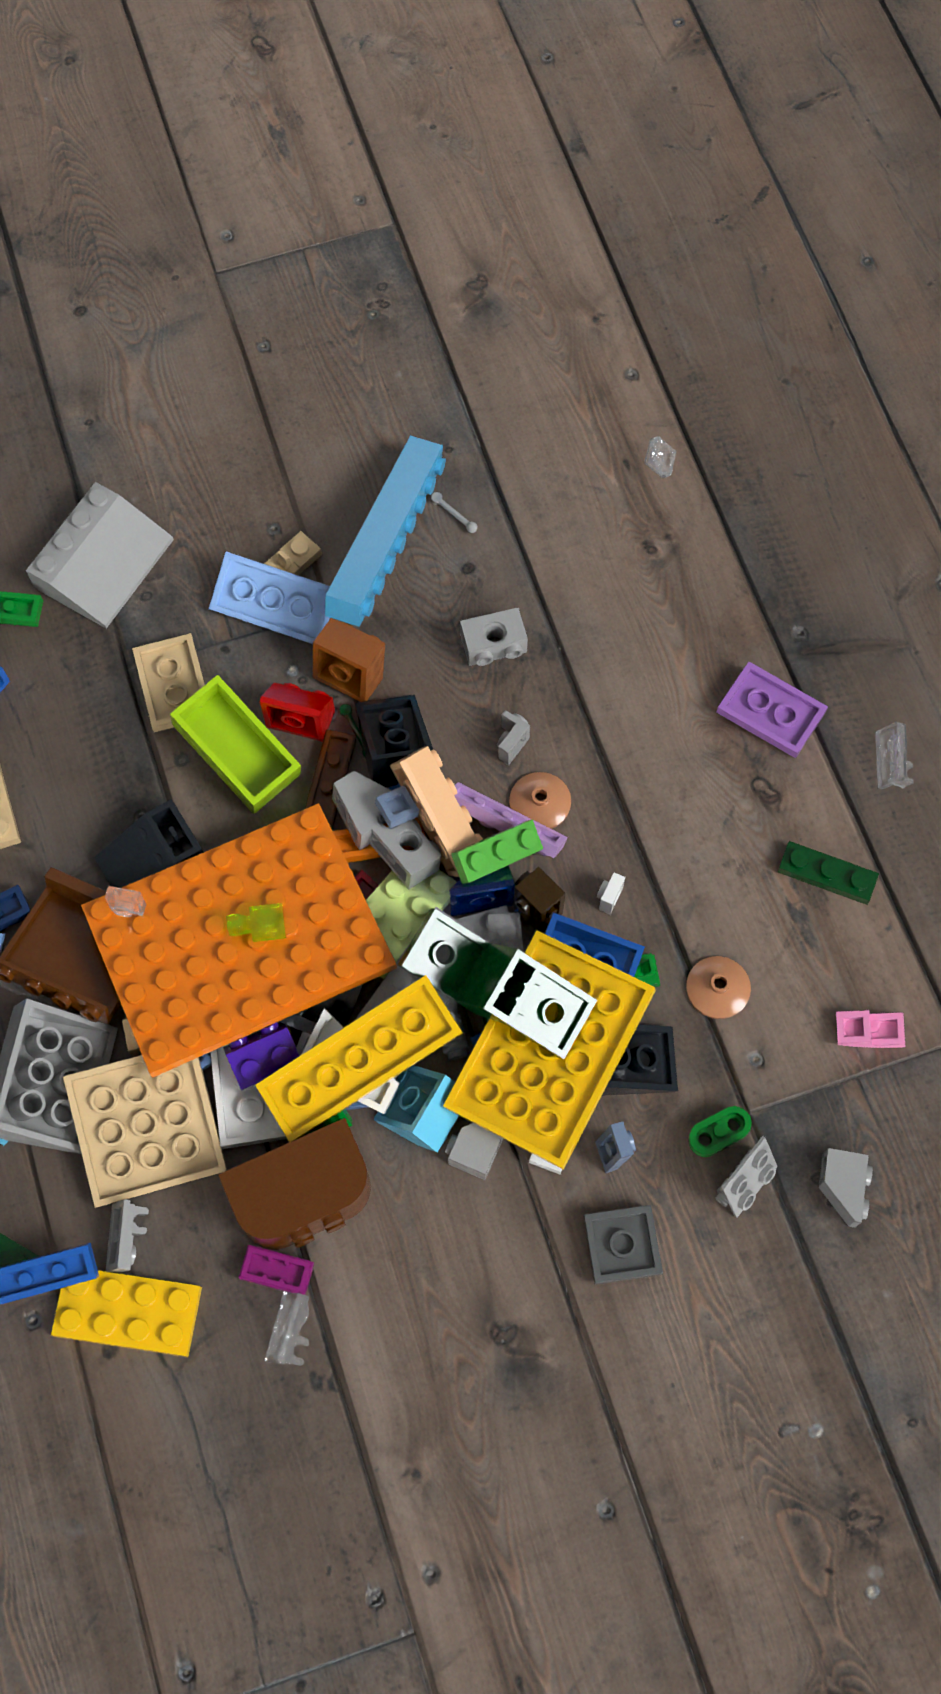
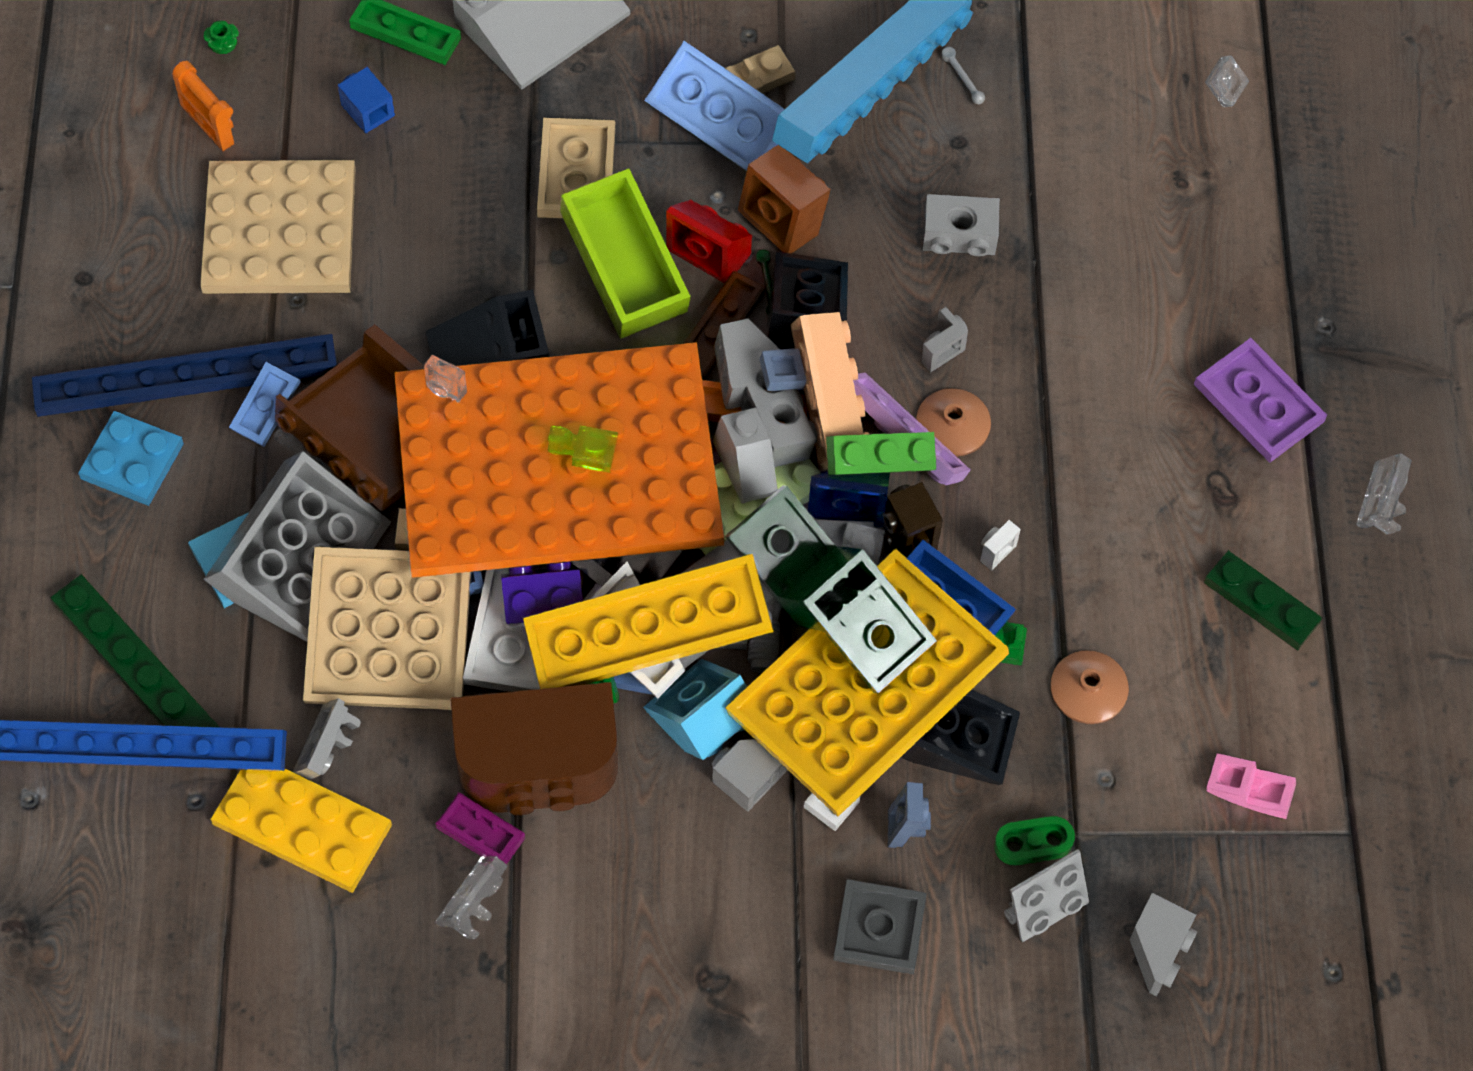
camera: 15 degrees right, 5 degrees down
(390, 886) = (746, 454): none -> light grey slope

